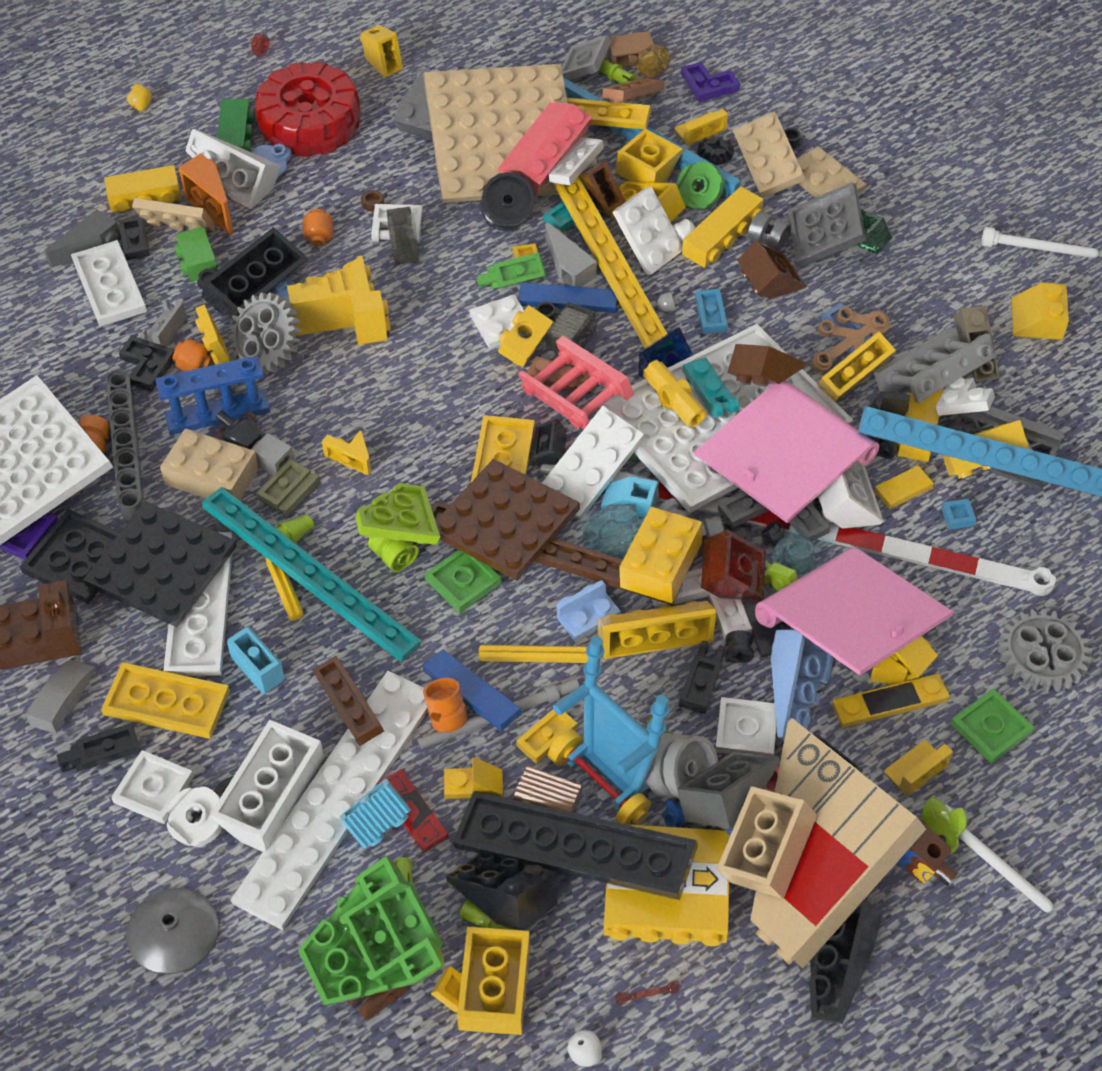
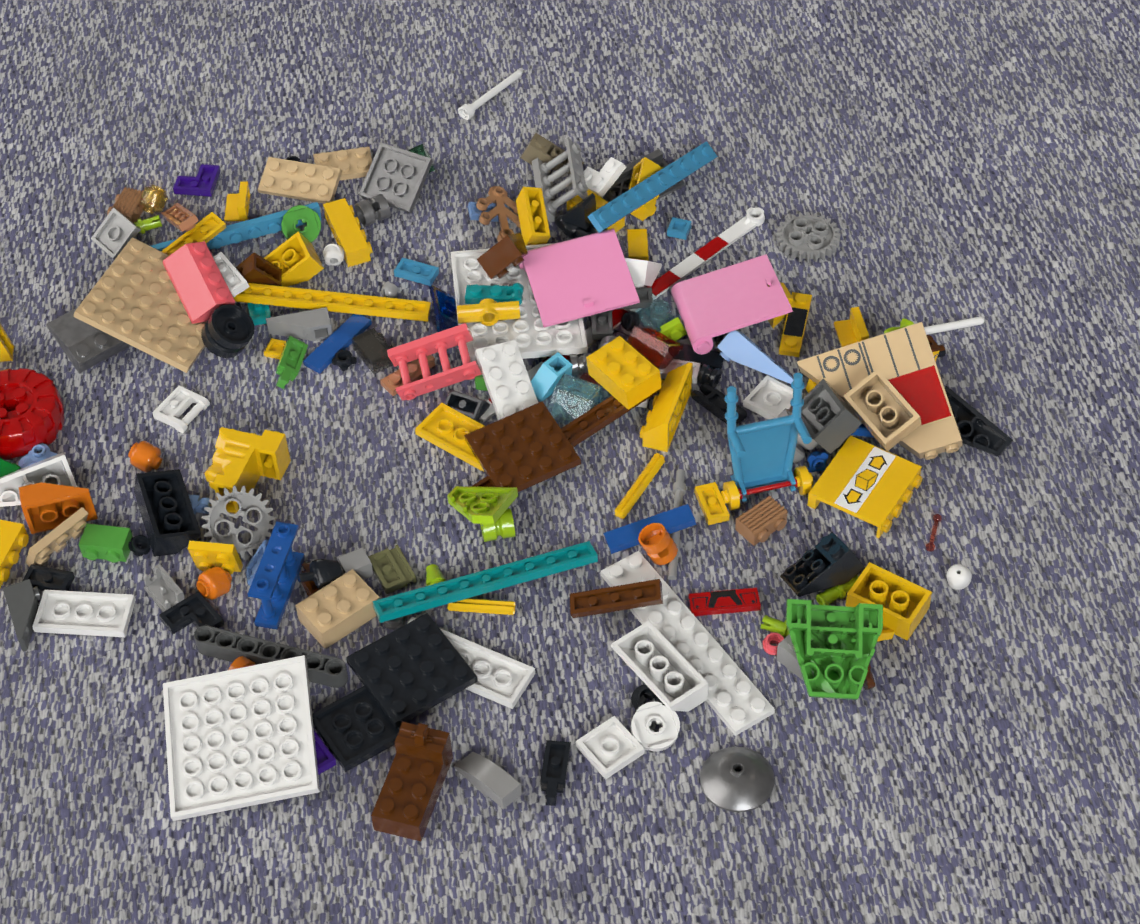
camera: 60 degrees left, 5 degrees down
(166, 700) = (537, 714): yellow plate -> none
(256, 660) = (544, 641): medium azure brick -> none
(351, 455) = (392, 517): yellow slope -> none
(371, 198) = (141, 416): reddish brown tile -> none
(375, 814) = (722, 616): medium azure brick -> none
(403, 235) = (204, 405): clear smoke slope -> none
(462, 580) = (551, 499): bright green plate -> none
(481, 778) = (722, 560): yellow slope -> none
(495, 318) = (329, 387): white plate -> none
(521, 349) = (363, 375): yellow brick -> none
(577, 844) = (814, 516): black plate -> none
(581, 611) = (626, 443): light blue bracket -> none
(647, 158) = (250, 238): yellow slope -> none
(648, 230) = (325, 265): white plate -> none
(721, 155) = (259, 209): black gear -> none
(769, 271) = (407, 227): reddish brown slope -> none
(992, 726) = (845, 285): bright green plate -> none
(1041, 312) = (550, 116): yellow slope -> none

